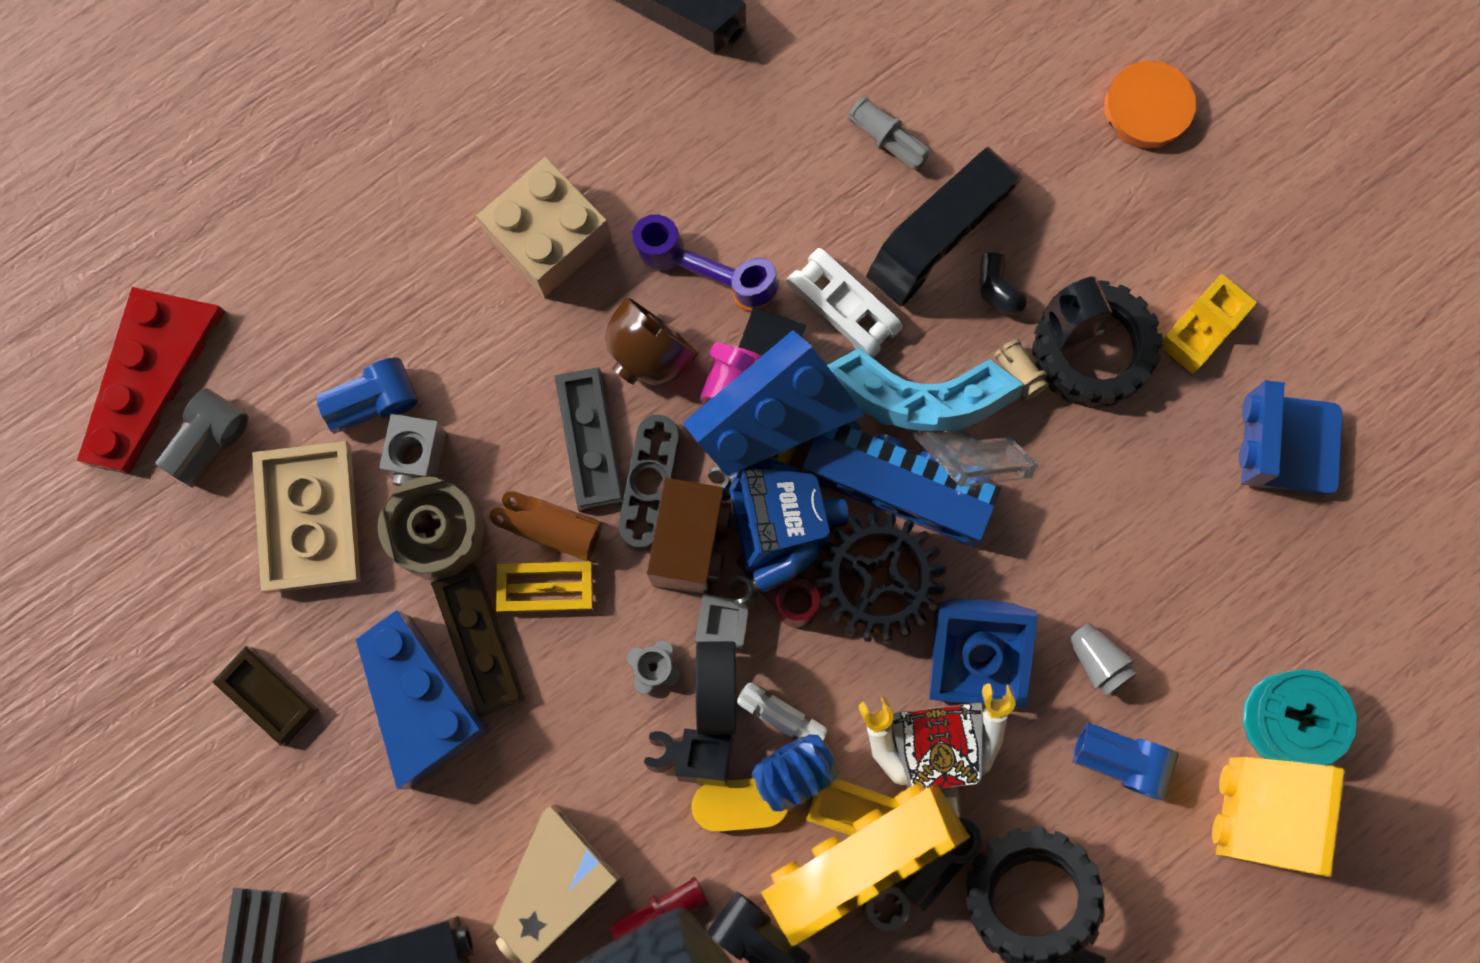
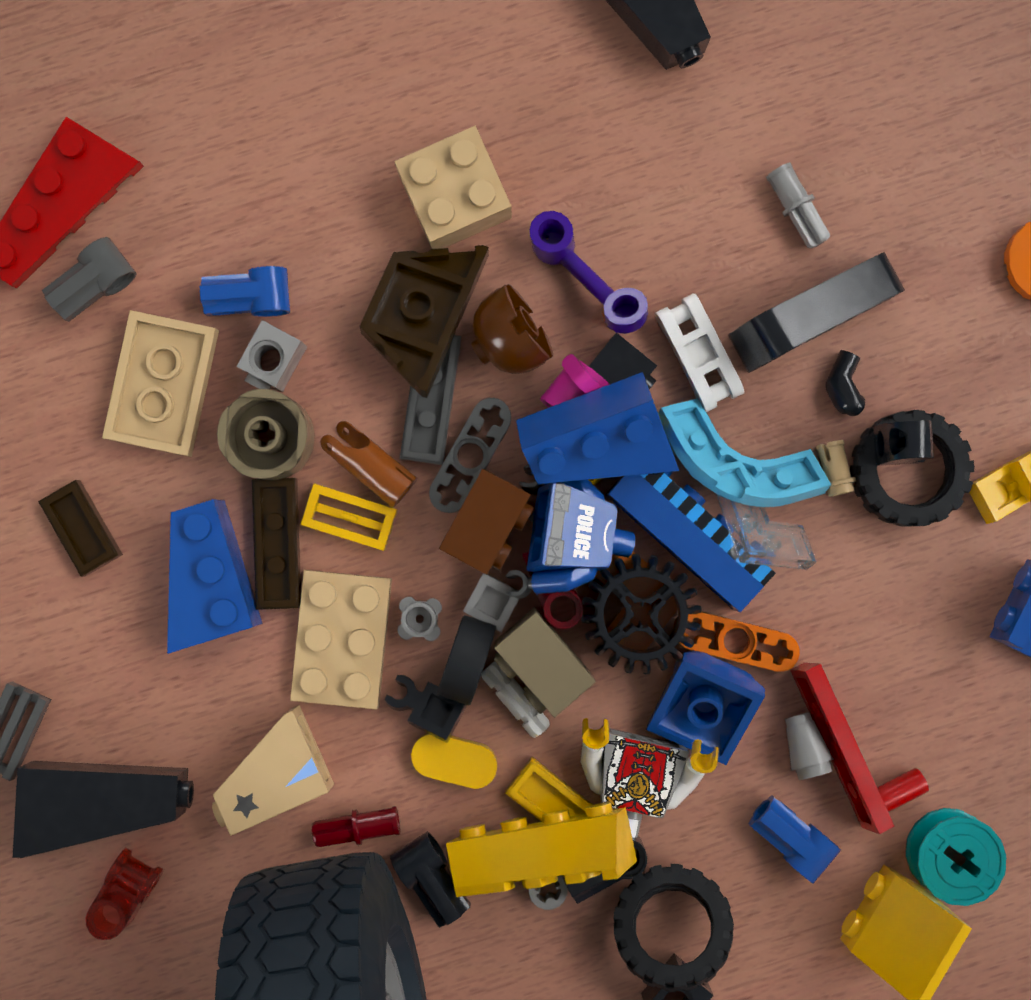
camera: 15 degrees right, 10 degrees up
(549, 353) = (421, 309): none -> dark brown wing
(577, 717) = (341, 639): none -> tan plate
(795, 772) = (509, 755): blue gear -> none
(796, 660) = (543, 663): none -> dark tan brick
(1020, 559) = (769, 637): none -> orange beam
(1185, 692) = (867, 800): none -> red piece

